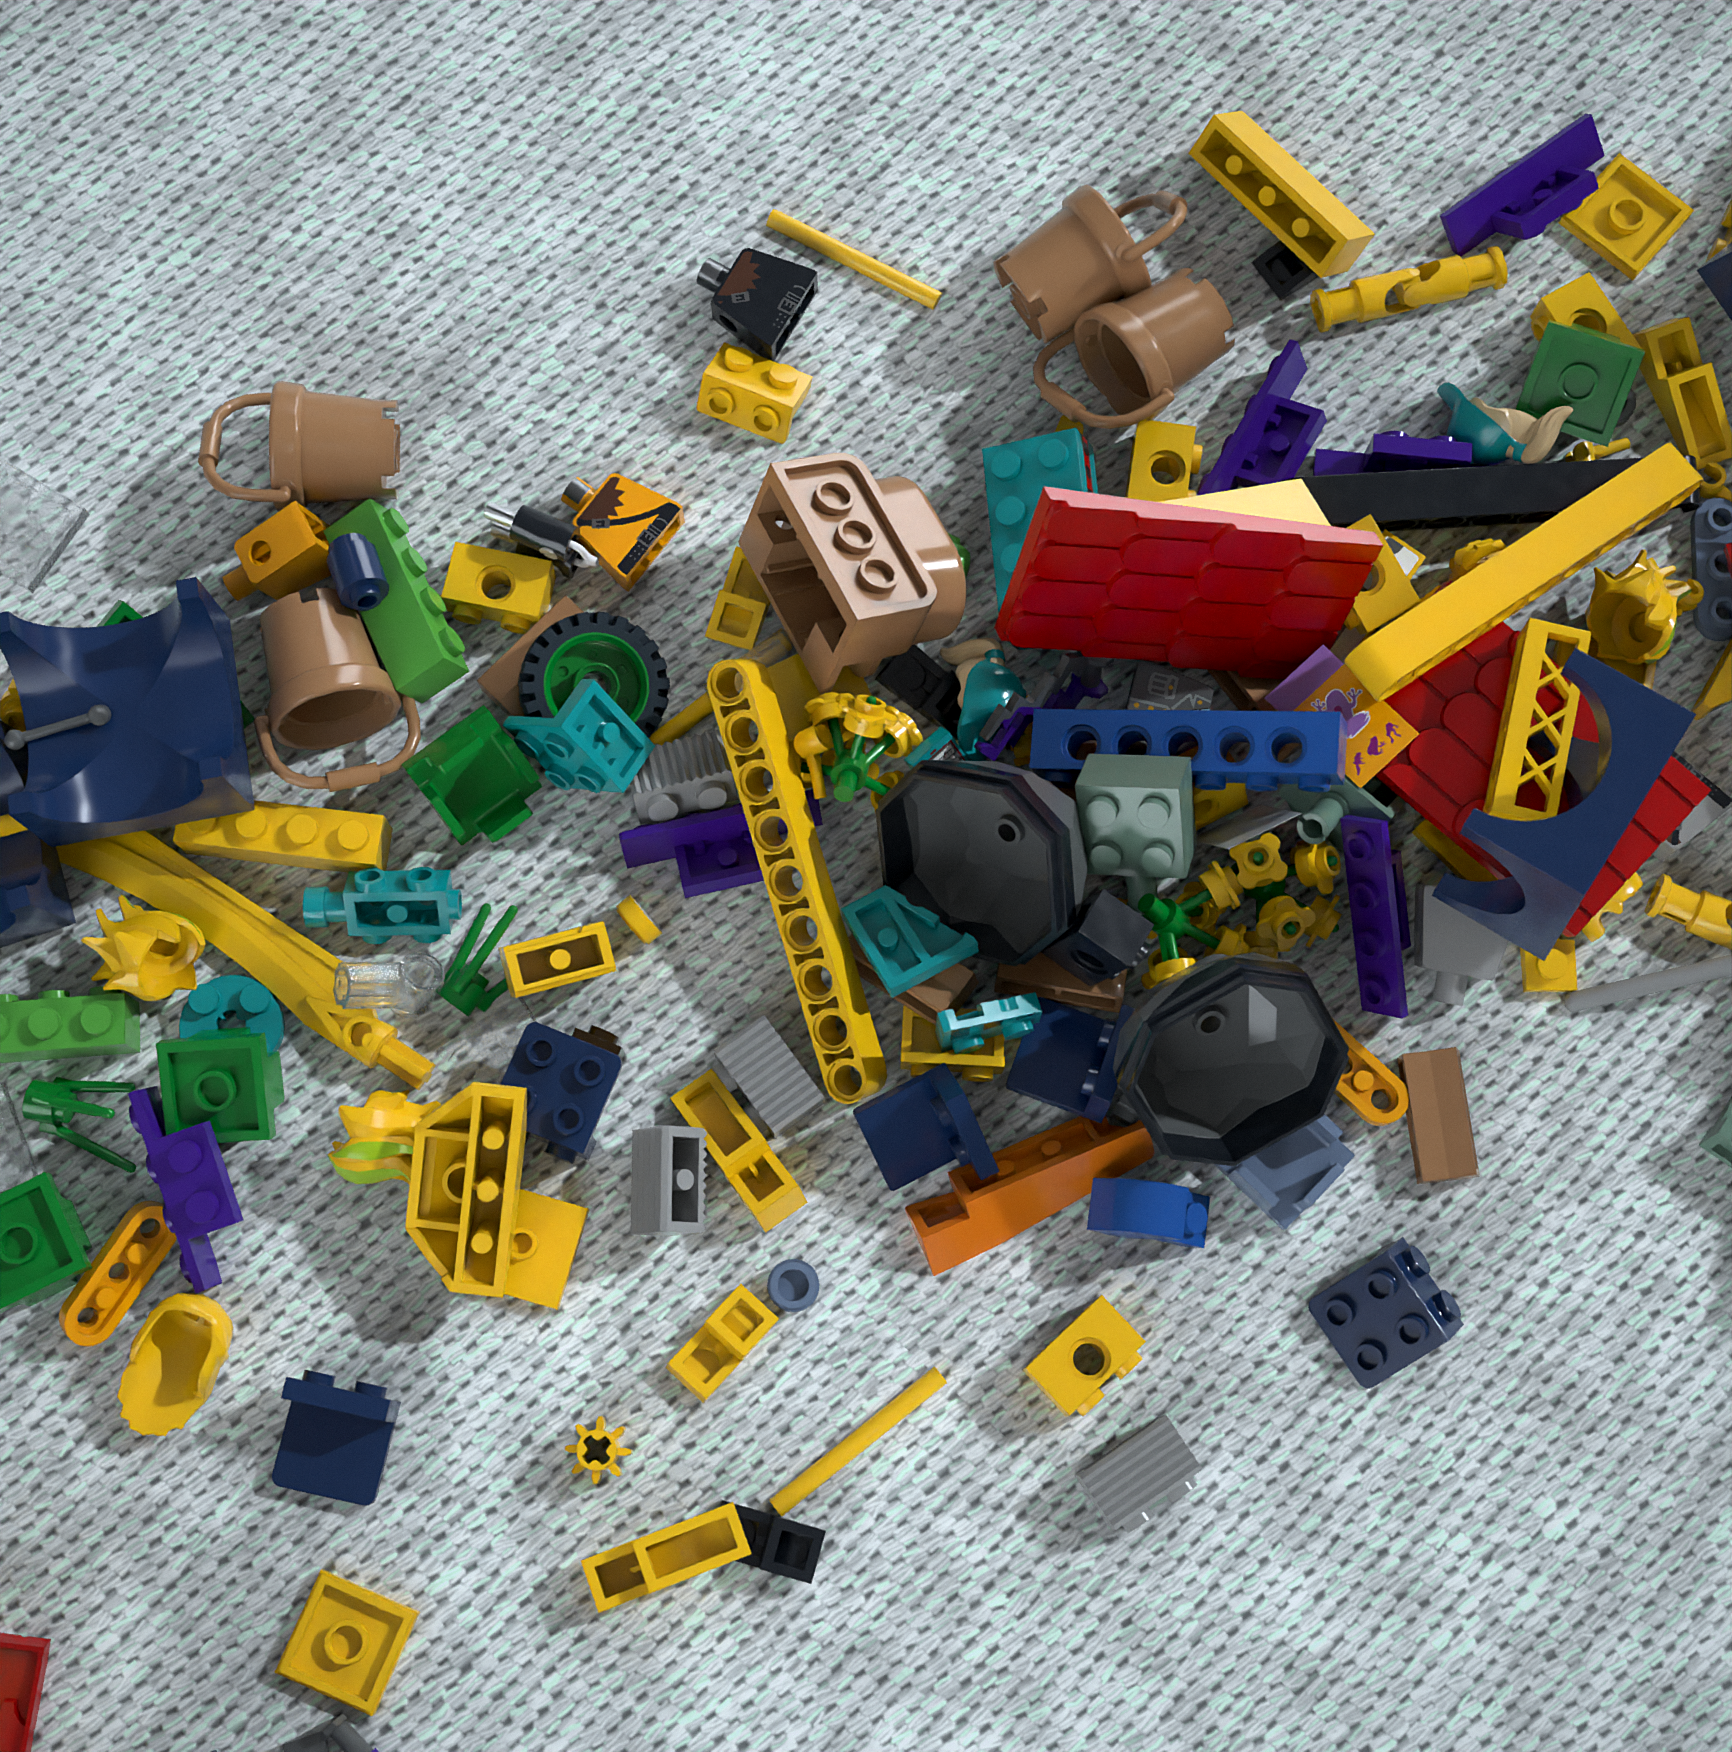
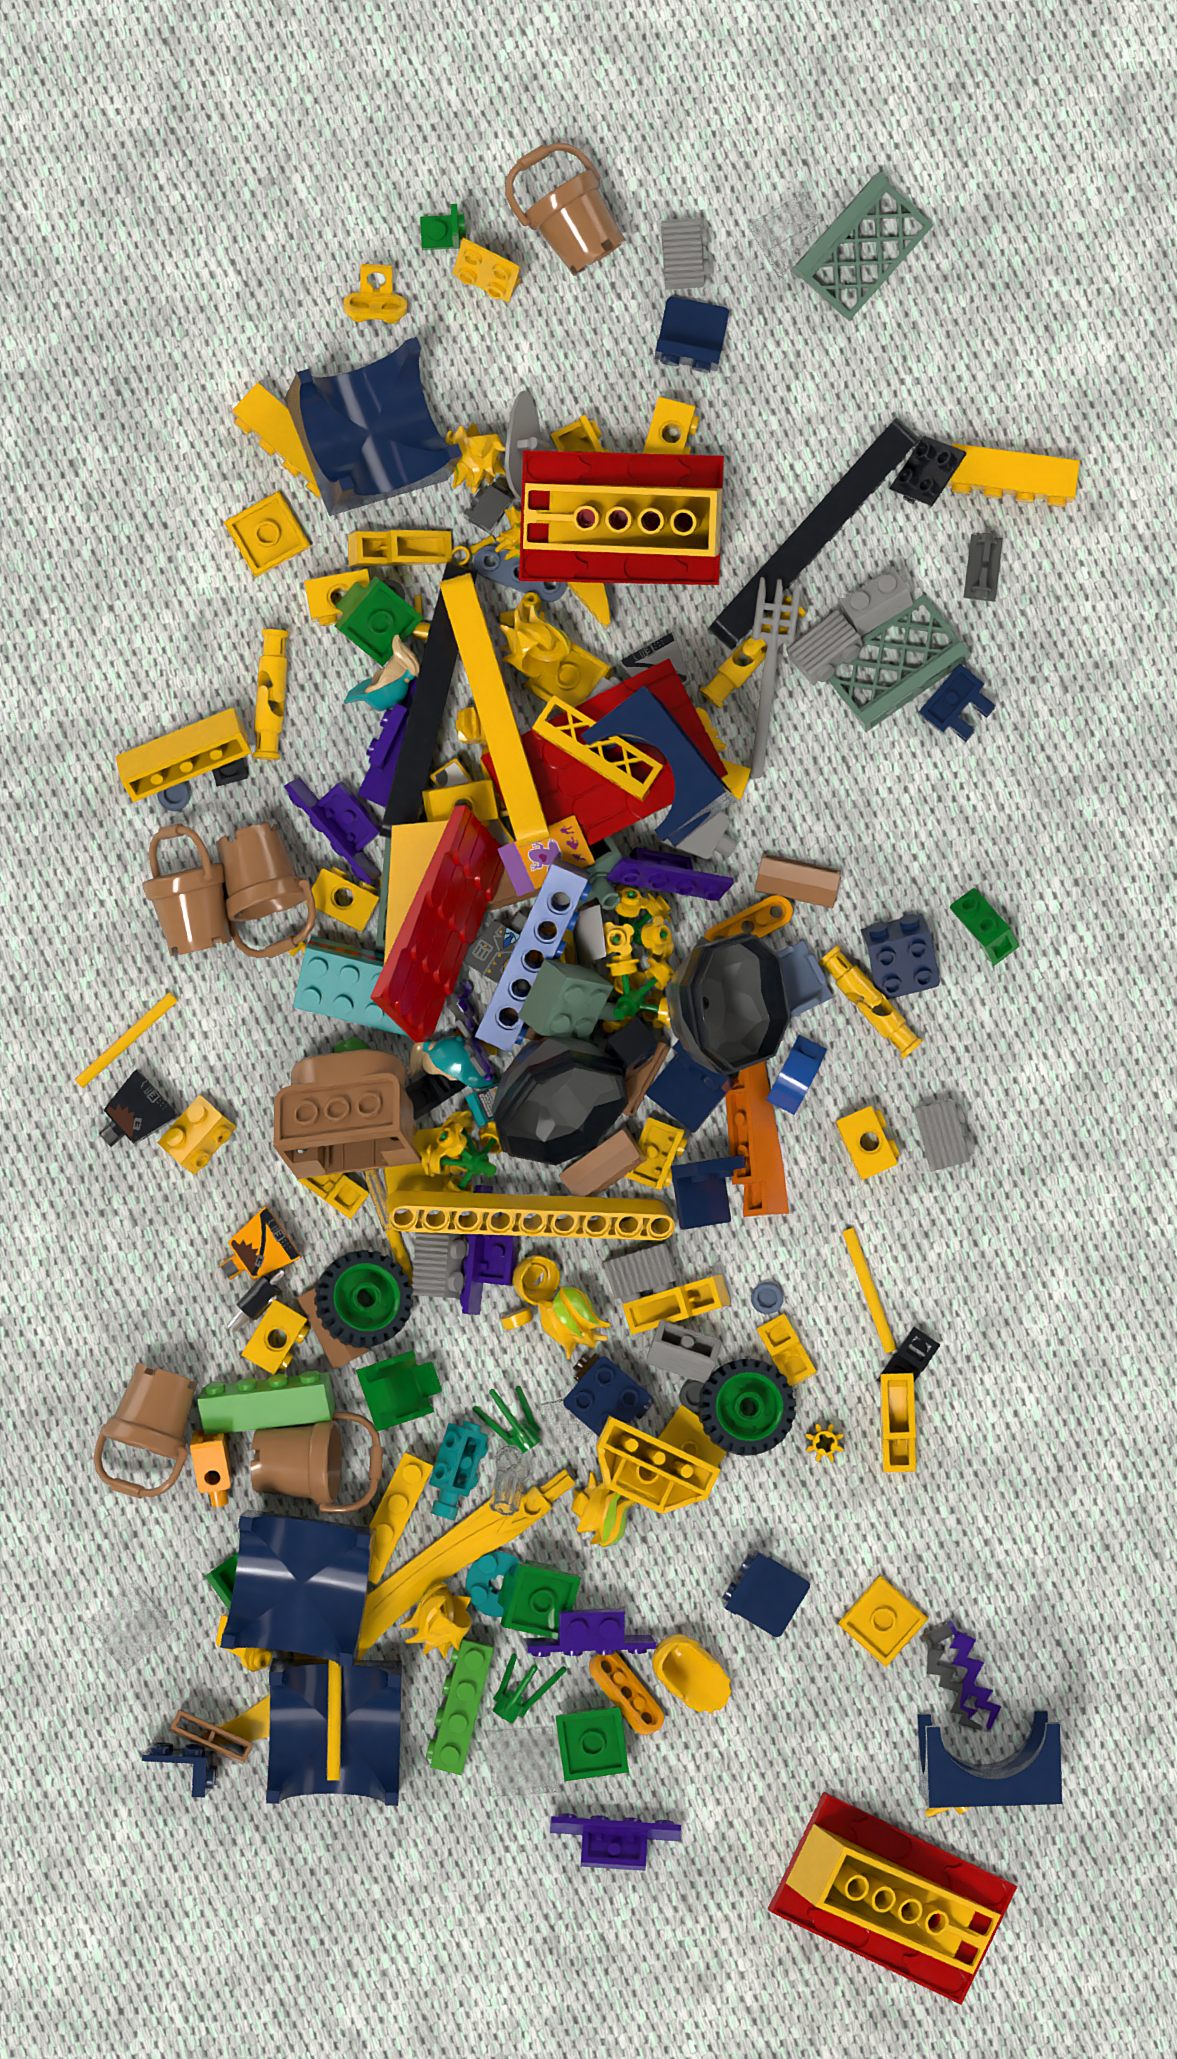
camera: 70 degrees left, 10 degrees up
(97, 715) = (292, 1603): dark grey hinge -> none
(357, 572) = (248, 1421): dark blue brick -> none
(557, 959) = (527, 1375): yellow brick -> none
(586, 743) = (404, 1312): teal bracket -> none
(608, 1226) = (690, 1396): none -> dark grey tile
(624, 1351) = (771, 1400): none -> wheel
(661, 996) = (571, 1319): none -> yellow hair
(711, 914) = (528, 1272): none -> yellow hair
(809, 745) = (452, 1179): yellow hand -> none
(904, 940) = (589, 1164): teal wing -> none
(1009, 1017) = (656, 1145): teal wing -> none
(1217, 211) = (175, 797): none -> sand blue tile
(1320, 1256) = (861, 991): none -> yellow piece
(1486, 1431) = (985, 925): none -> green bracket
(1530, 191) = (232, 590): dark purple bracket -> none

